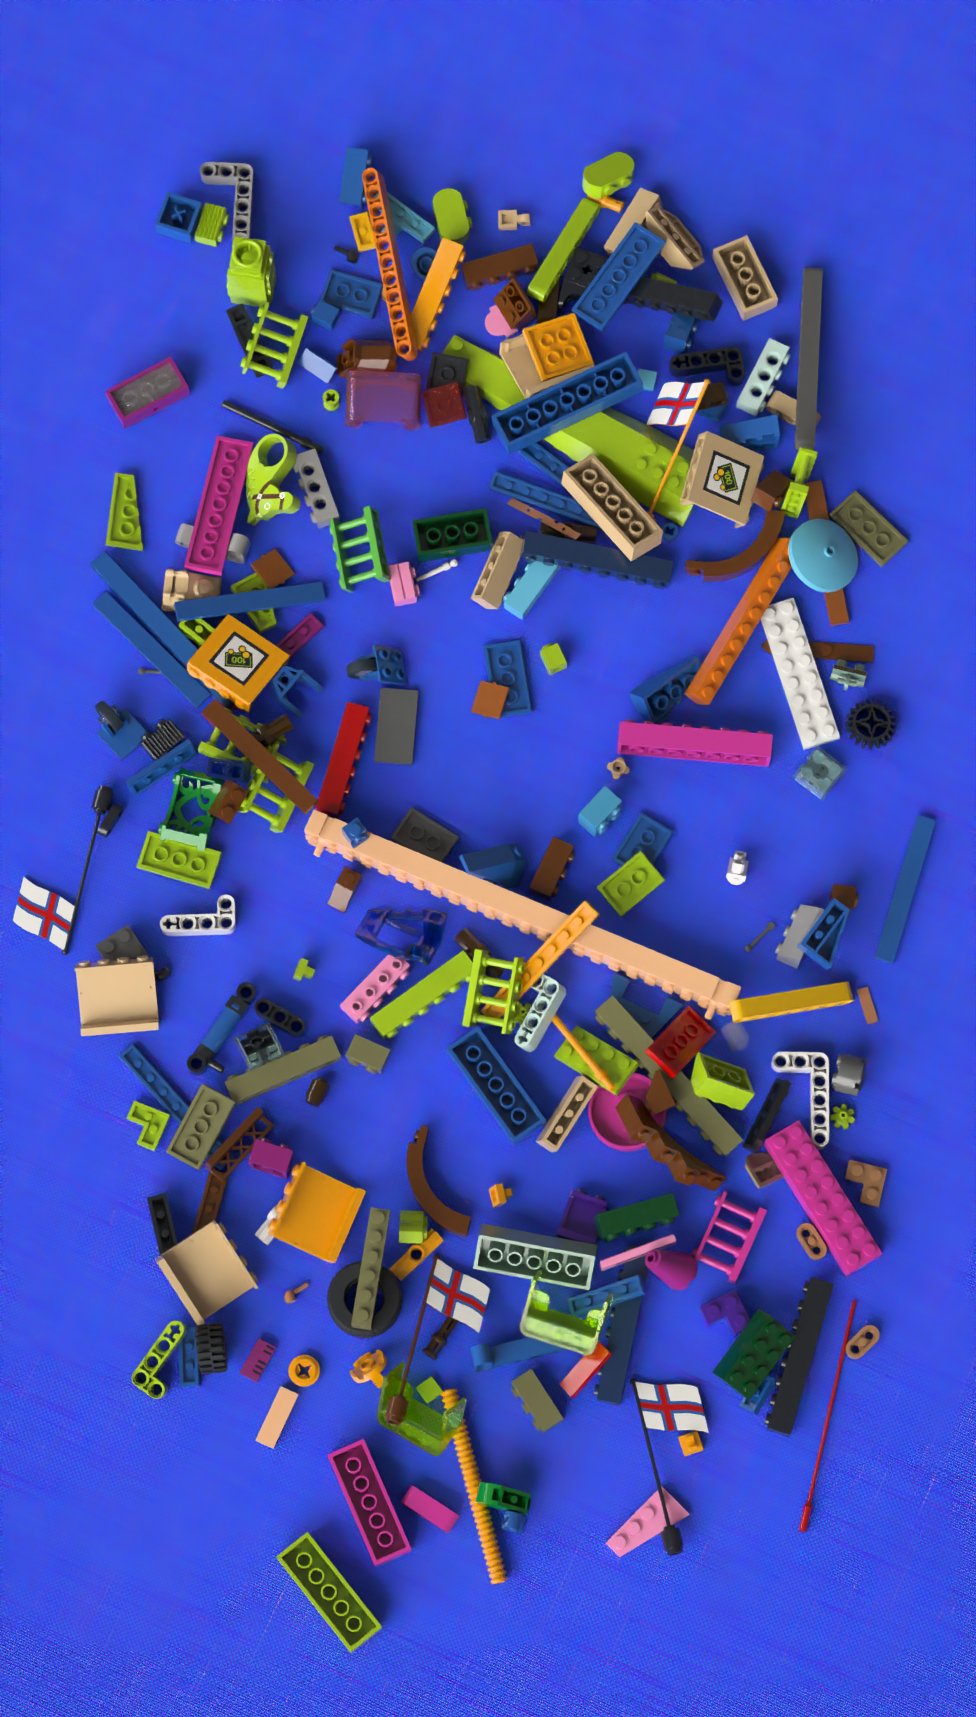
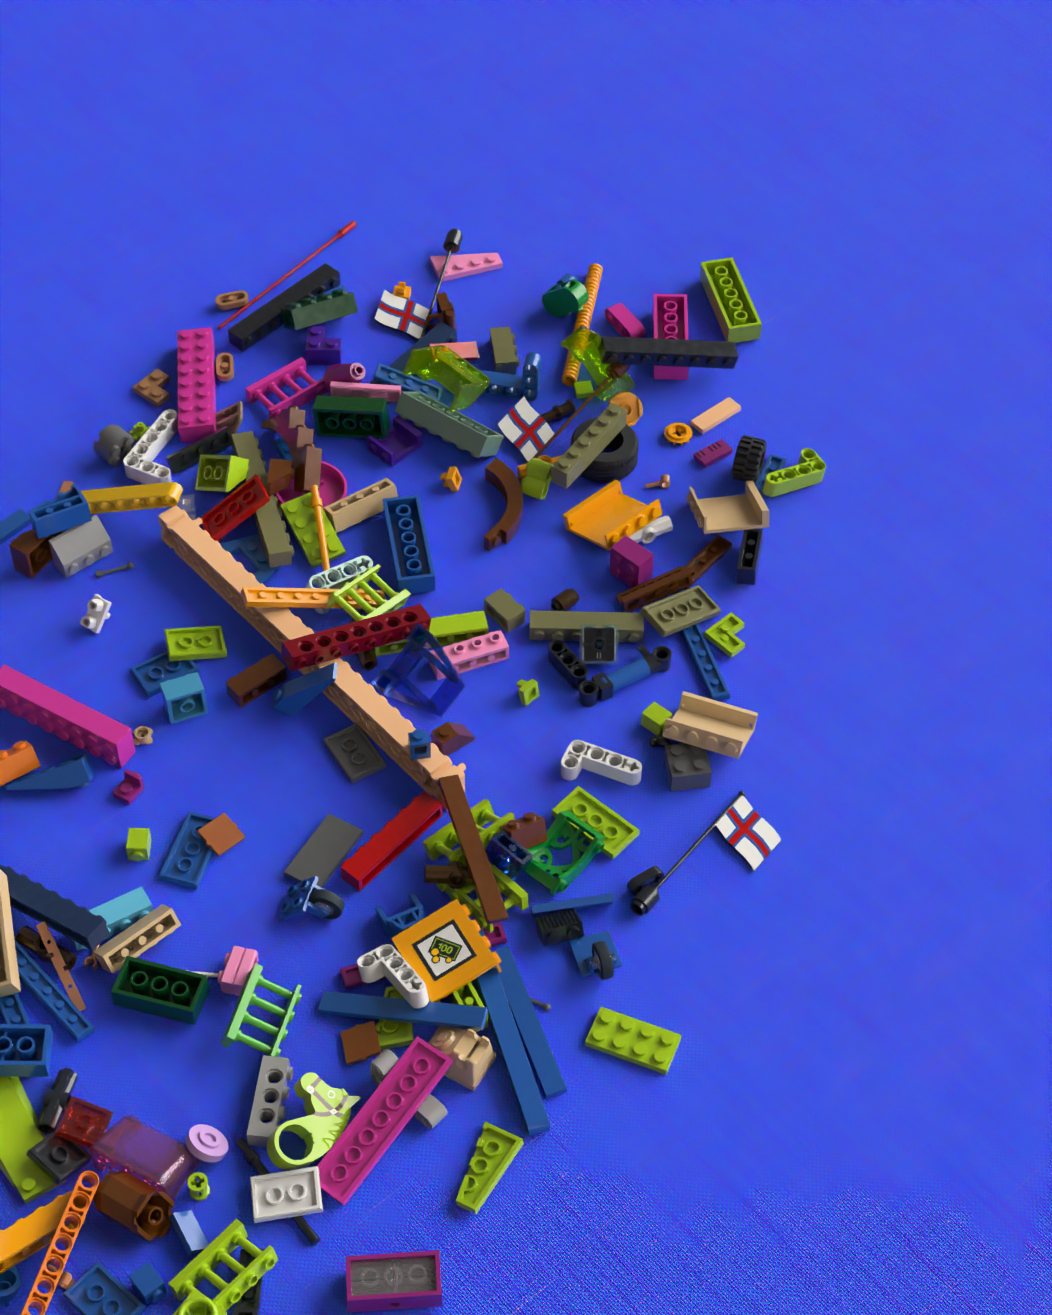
camera: 155 degrees left, 25 degrees down
(59, 672) = (633, 1040): none -> lime plate
(171, 993) = (654, 718): none -> lime brick
(260, 420) = (286, 1194): none -> white tile
(265, 621) = (389, 963): none -> white beam
(343, 432) = (206, 1143): none -> lavender piece
(350, 1445) = (667, 352): none -> black brick
(438, 987) = (353, 637): none -> dark red brick
(597, 710) = (129, 788): none -> magenta bracket
(622, 1424) = (445, 312): none -> reddish brown piece

